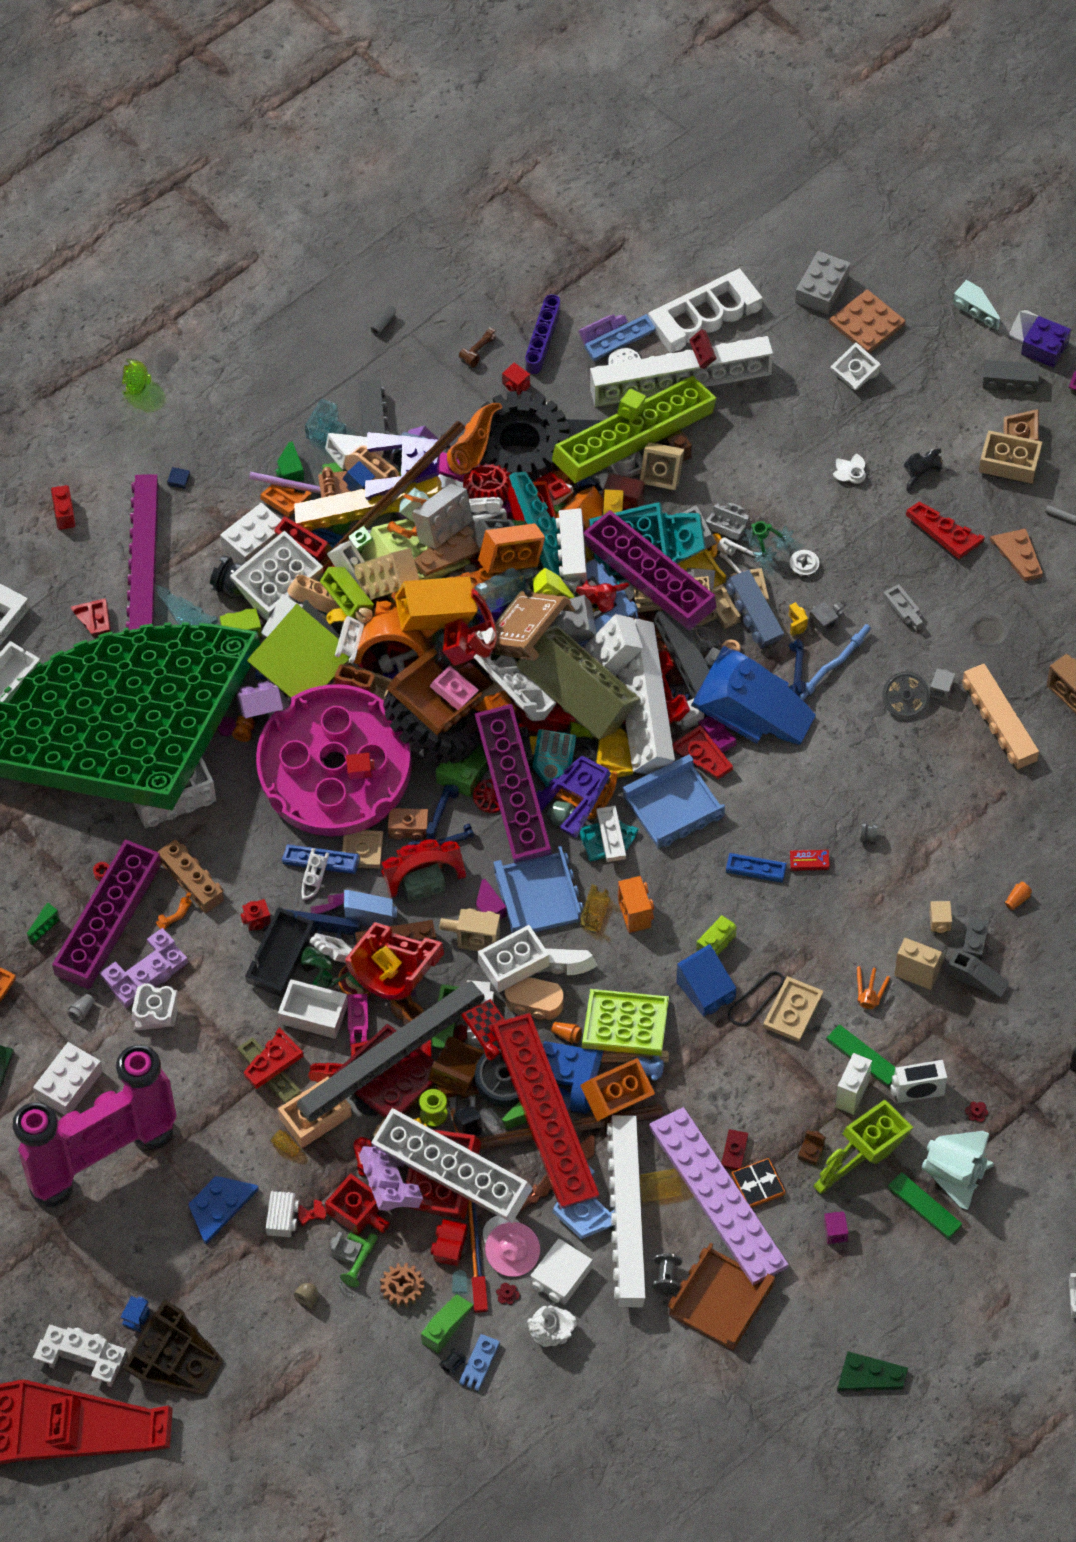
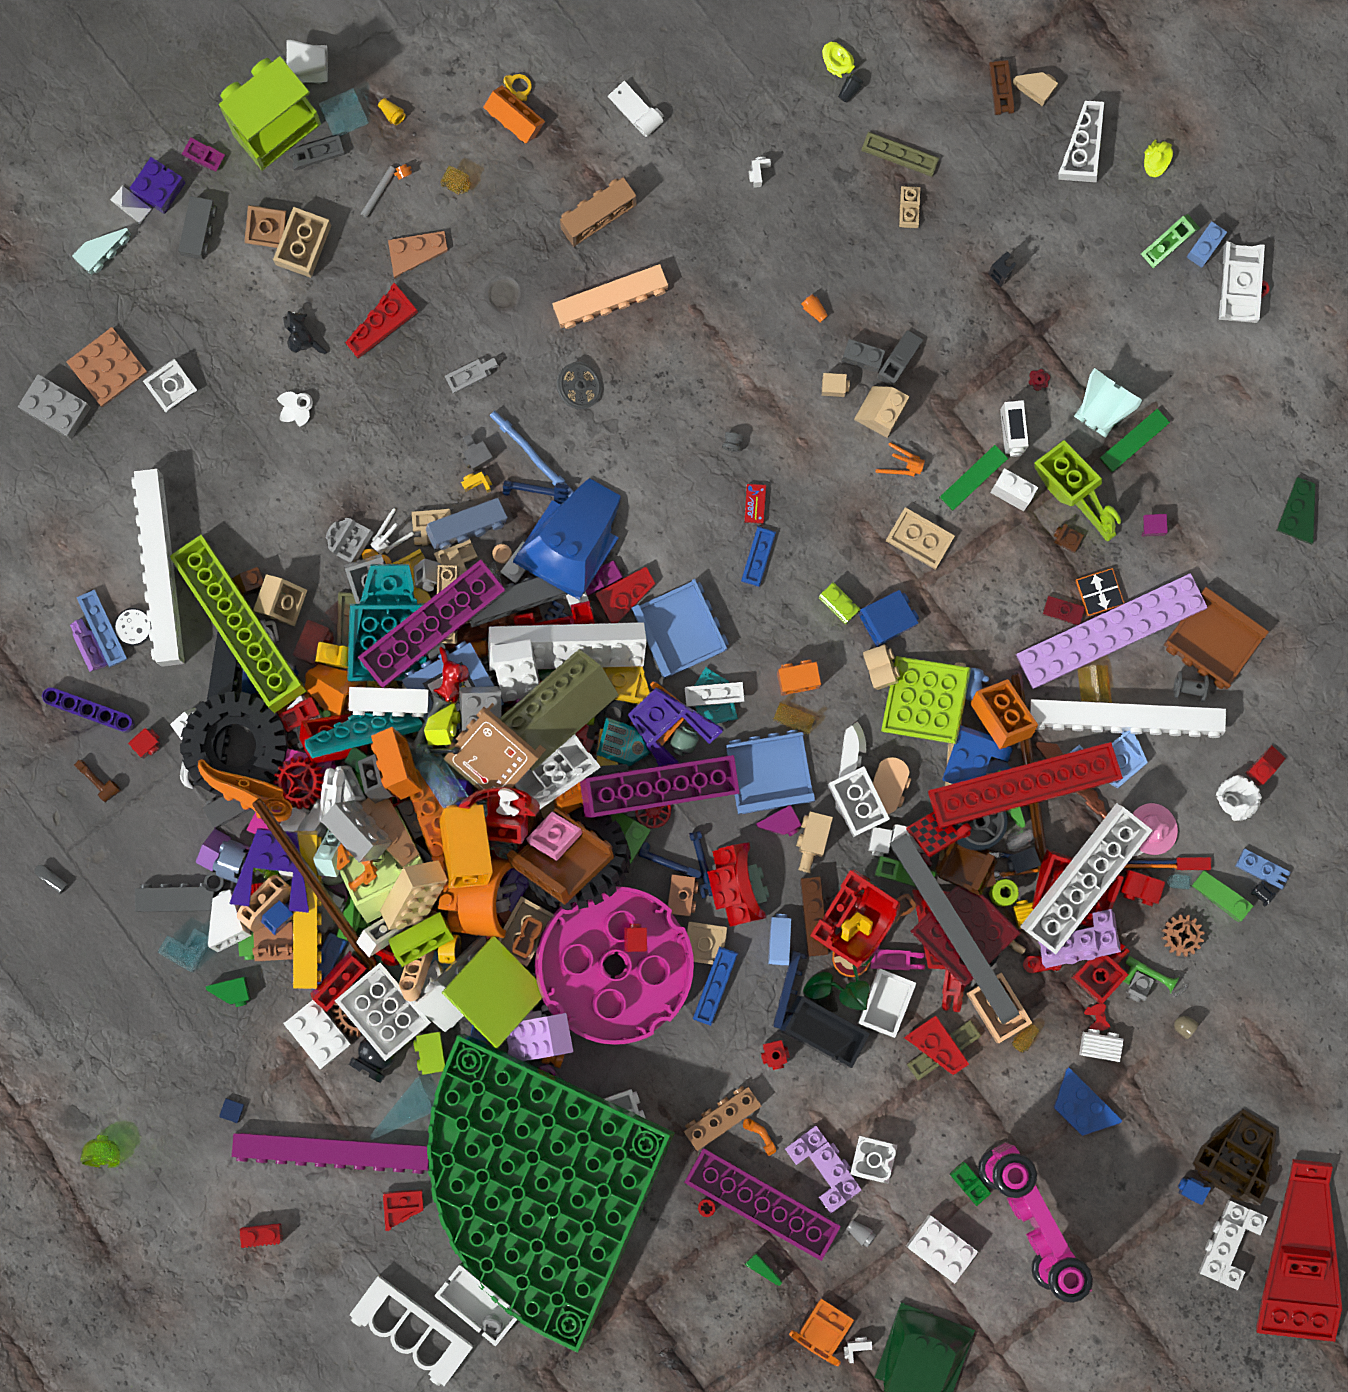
camera: 90 degrees left, 25 degrees up
(283, 498) = (272, 998): orange wing -> none
(284, 482) = (254, 998): lavender bar -> none
(312, 878) = (737, 996): white piece -> none
(331, 946) = (832, 982): white piece -> none
(334, 901) = (764, 973): magenta slope -> none
(349, 638) = (483, 939): white hinge -> none
(360, 538) = (360, 919): bracket -> none
(364, 612) = (454, 922): tan hinge -> none
(507, 1298) = (1188, 838): dark red plant -> none
(561, 1272) = (1181, 785): white brick -> none
(568, 1032) = (926, 757): orange cone -> none
(590, 1355) = (1265, 766): none -> red slope
(631, 404) = (218, 622): lime brick -> none
(655, 980) = (881, 667): none -> tan brick
(702, 349) = (148, 540): dark red plate -> none
(737, 285) = (55, 493): white fence -> none
(760, 532) = (379, 505): clear light blue plant -> none
(765, 1002) = (891, 575): black piece -> none
(799, 557) = (402, 460): white gear -> none
(942, 684) = (567, 348): light grey brick -> none

